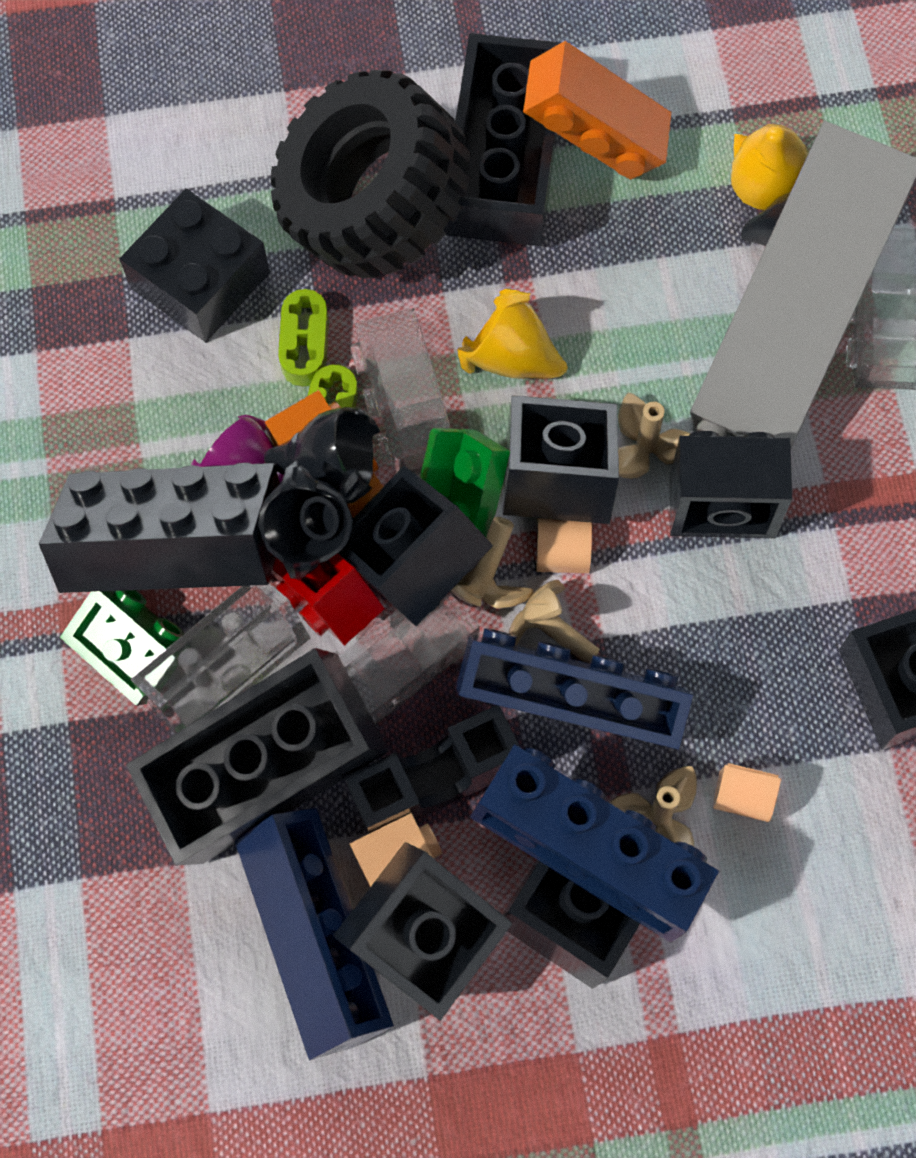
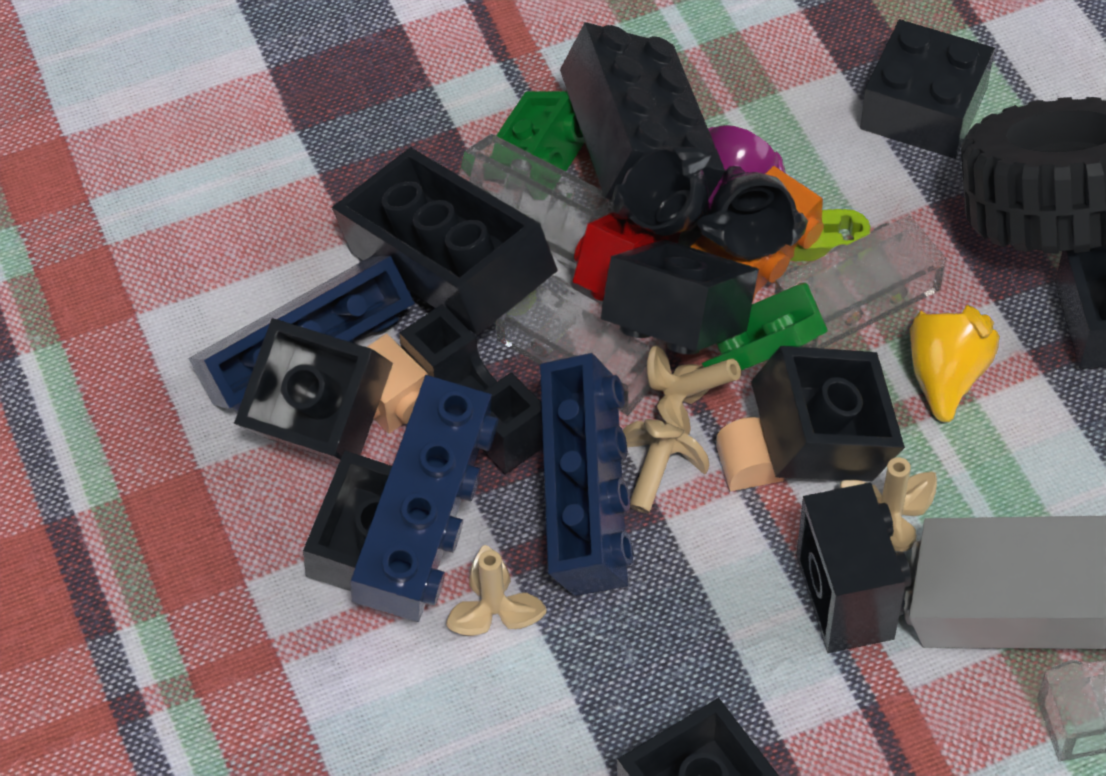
camera: 75 degrees right, 15 degrees down
(293, 337) = (891, 194): lime beam -> none
(746, 792) = (532, 663): light nougat brick -> none

